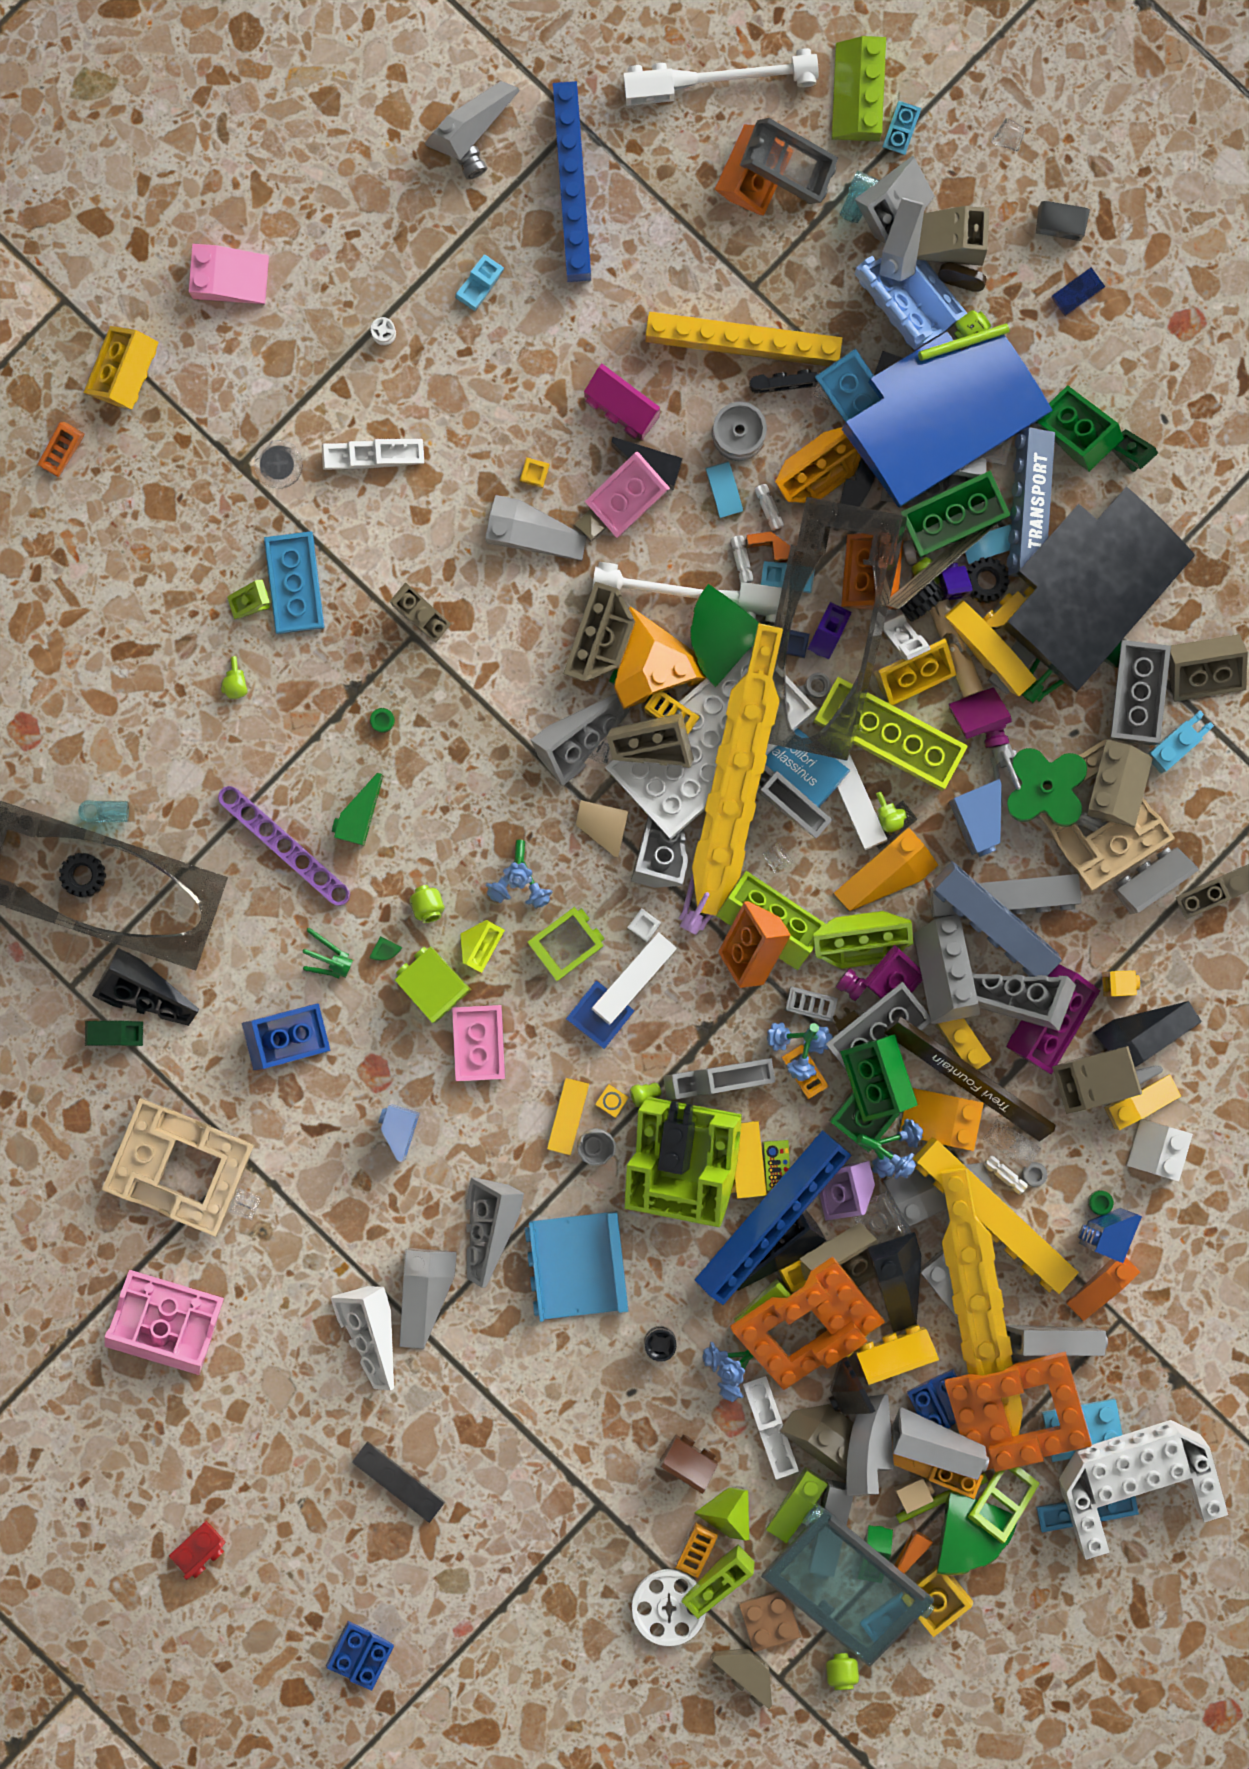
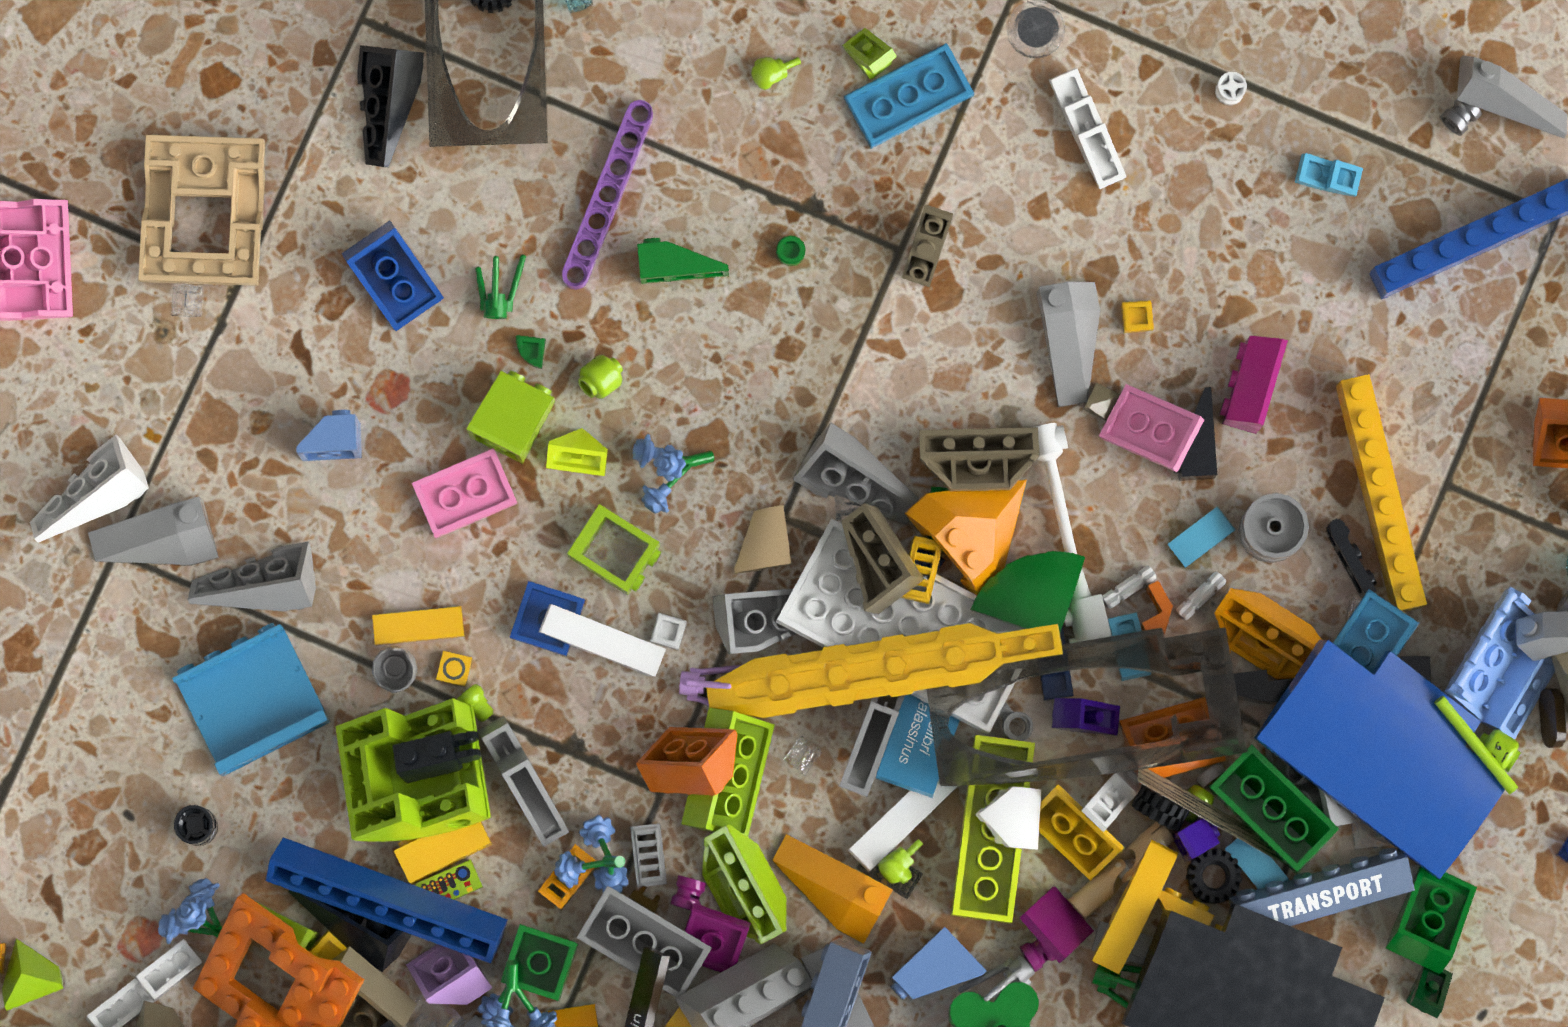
camera: 65 degrees right, 5 degrees down
(113, 1033) = (326, 84): dark green slope -> none
(689, 1462) = (70, 908): reddish brown slope -> none
(879, 1078) = (589, 960): green slope -> none
(889, 713) = (1014, 817): none -> white slope

